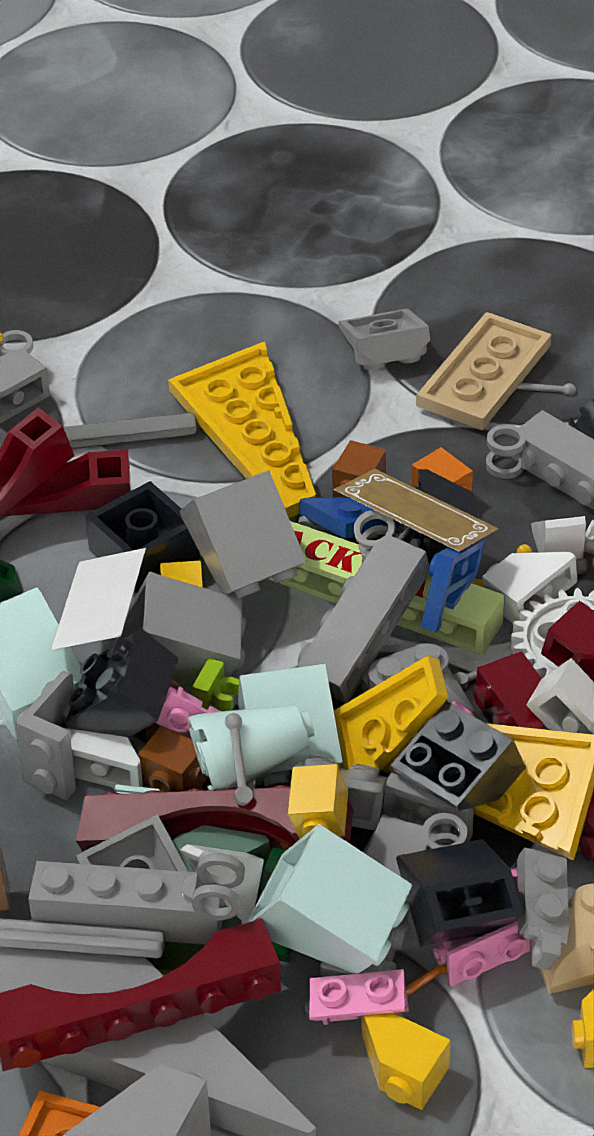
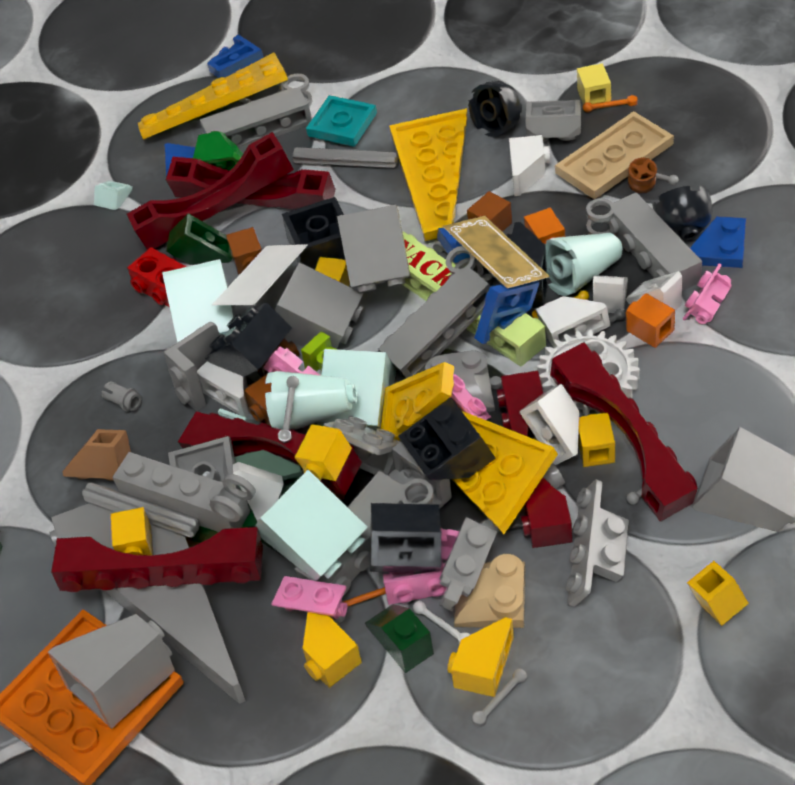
camera: 25 degrees right, 5 degrees up
(48, 571) = (243, 247): none -> dark orange brick
(80, 965) = (131, 532): none -> yellow brick
(95, 384) = (341, 120): none -> teal plate
(304, 335) = (495, 107): none -> black cylinder
(374, 396) = (527, 161): none -> white slope
(418, 287) = (593, 84): none -> light yellow brick
(470, 300) = (631, 101): none -> orange hinge
(492, 1017) = (402, 636): none -> dark green slope
(511, 504) = (576, 259): none -> light aqua cone
(540, 383) = (639, 168): none -> dark orange wheel
(570, 1005) = (420, 608): none -> white hinge

